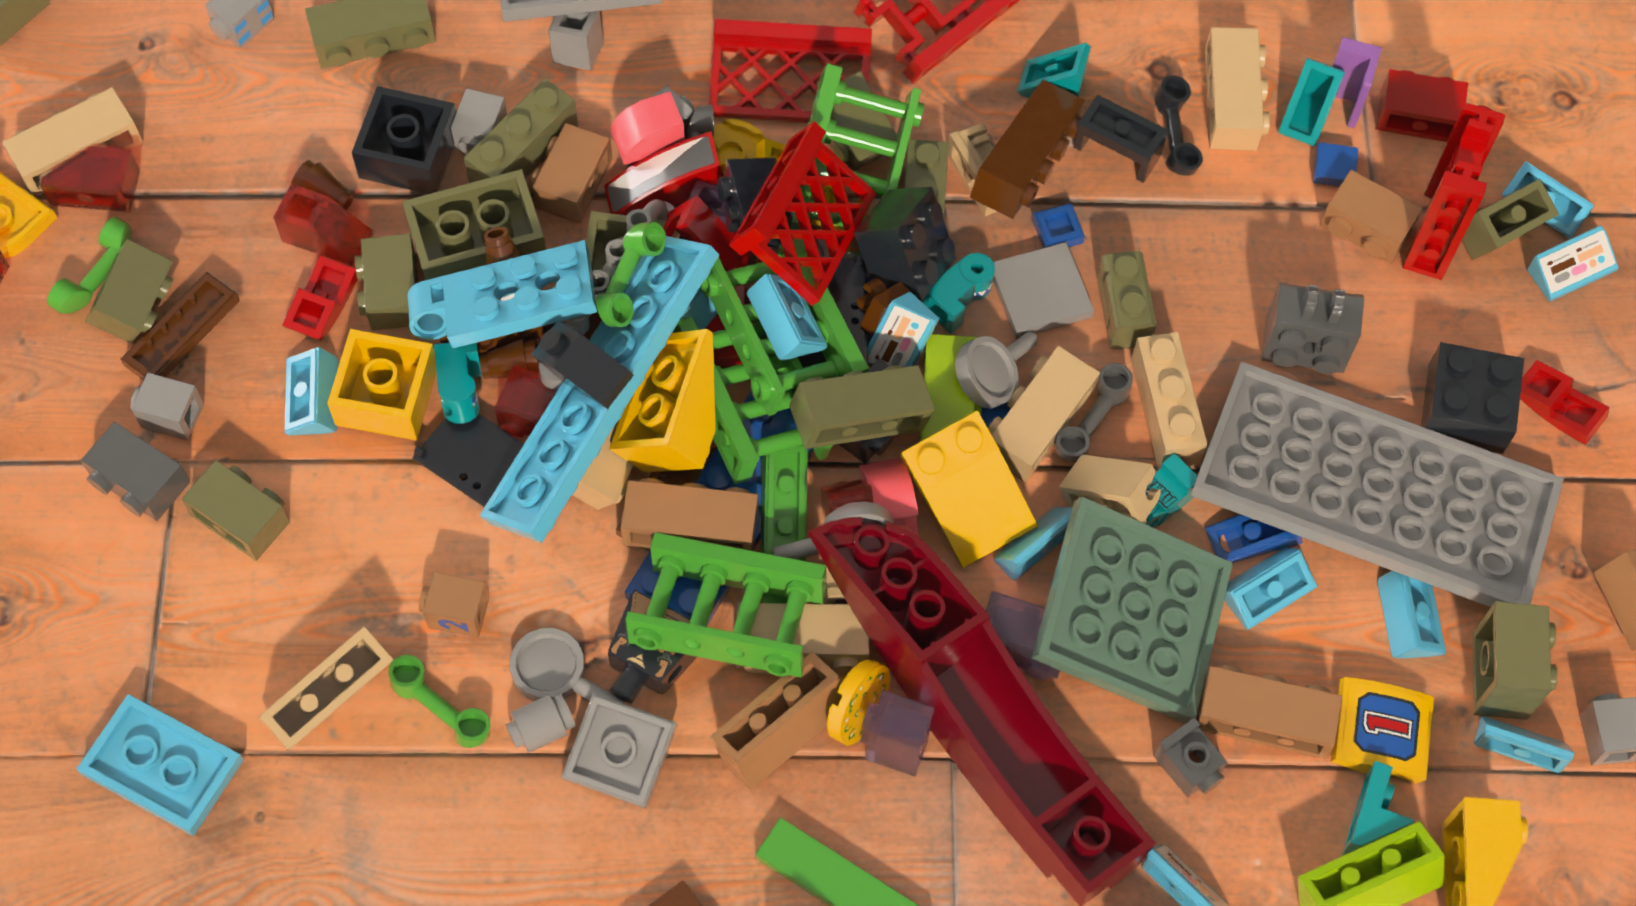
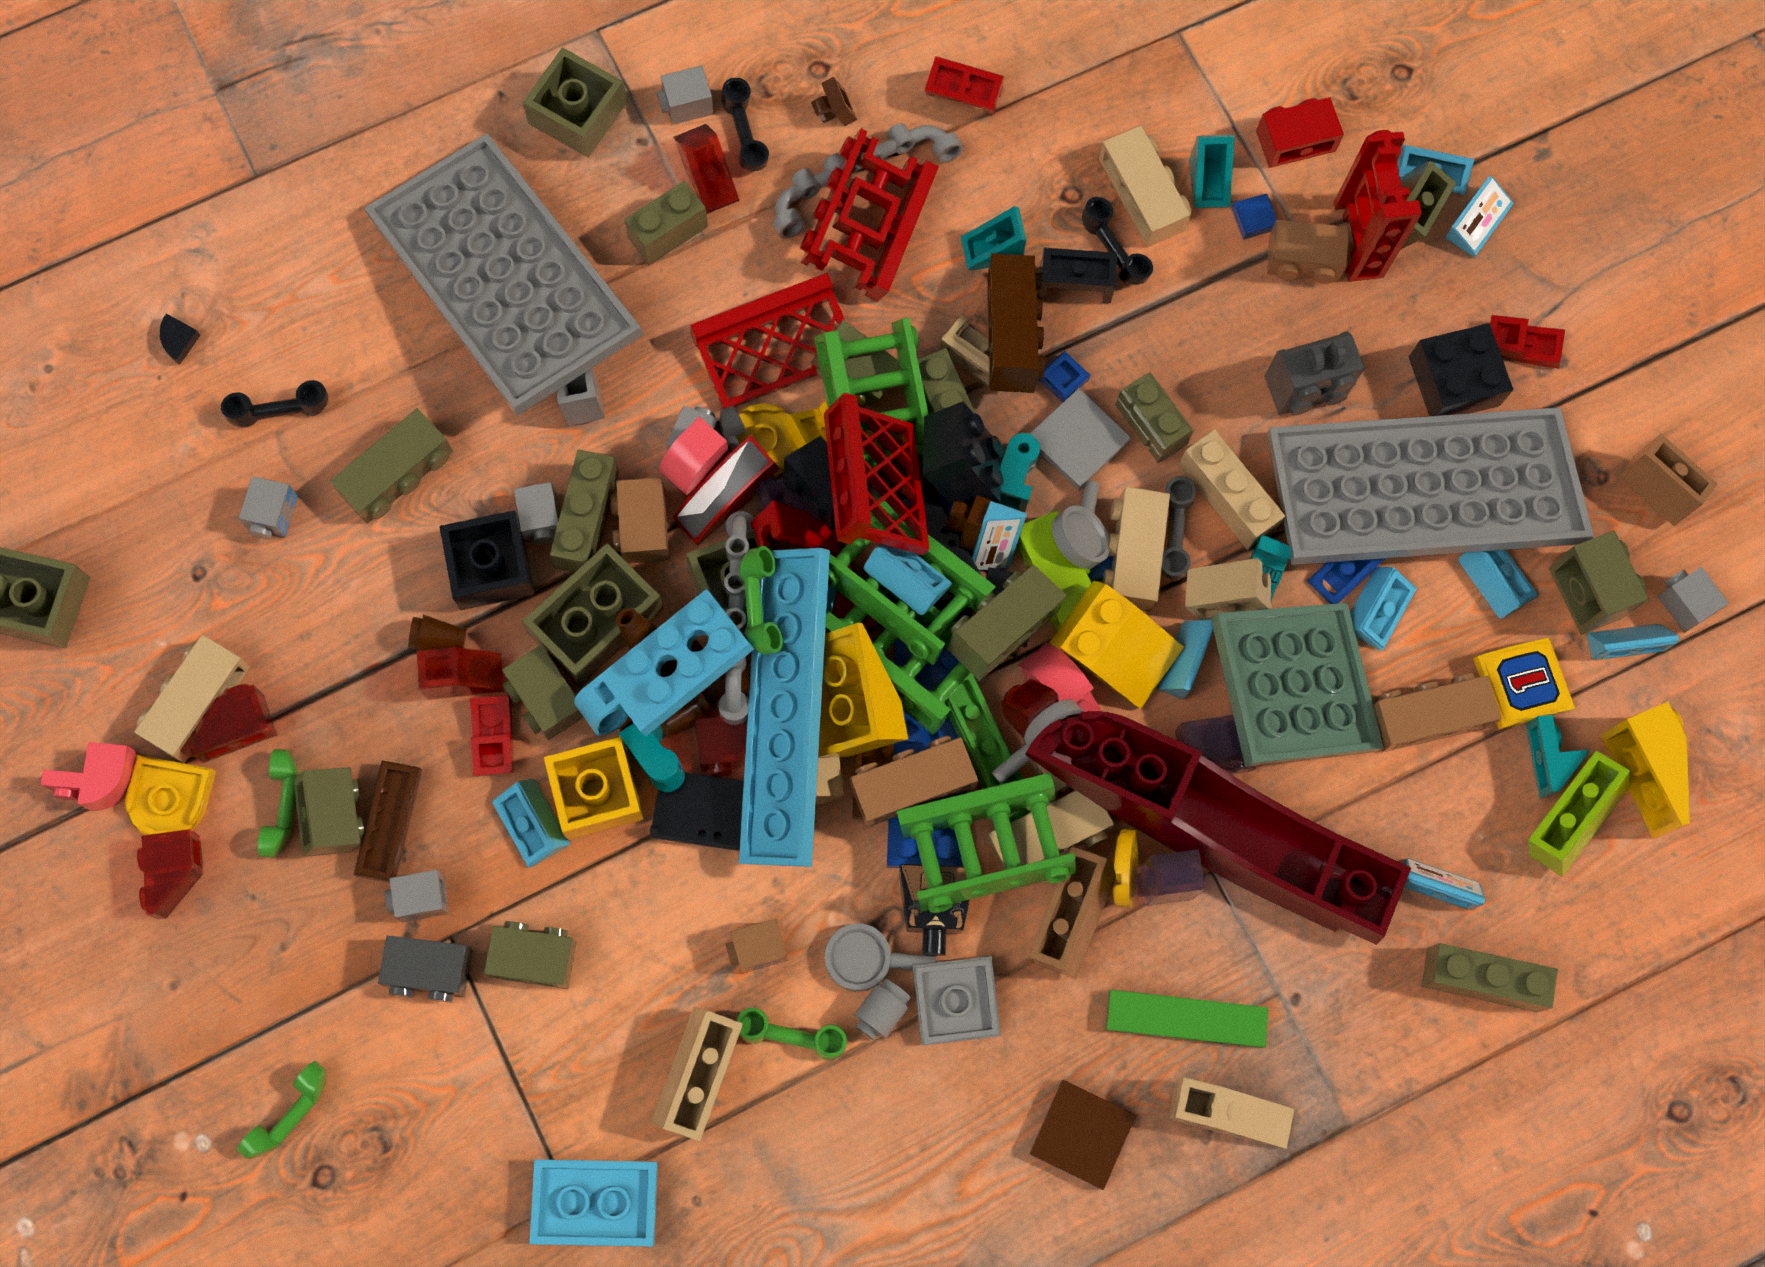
camera: 30 degrees left, 10 degrees up
(582, 364) = (767, 701): black slope -> none
(1188, 775) = (1384, 785): dark grey brick -> none
(1359, 63) = (1247, 127): medium lavender panel -> none

